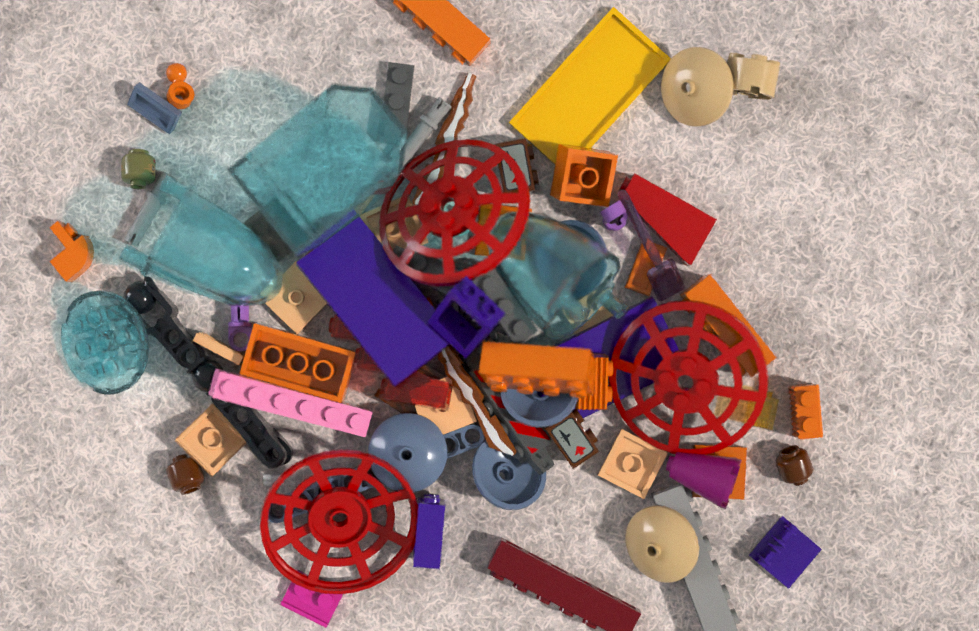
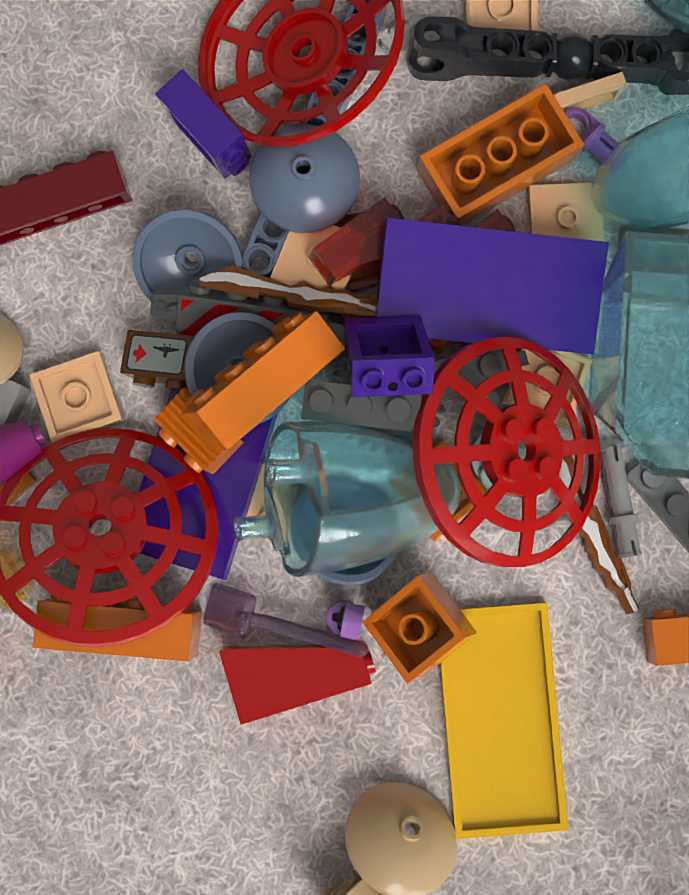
camera: 135 degrees right, 5 degrees down
(289, 402) = (470, 101): bright pink brick -> none
(522, 155) = (500, 581): brick -> none
(638, 279) = (259, 582): orange tile -> none

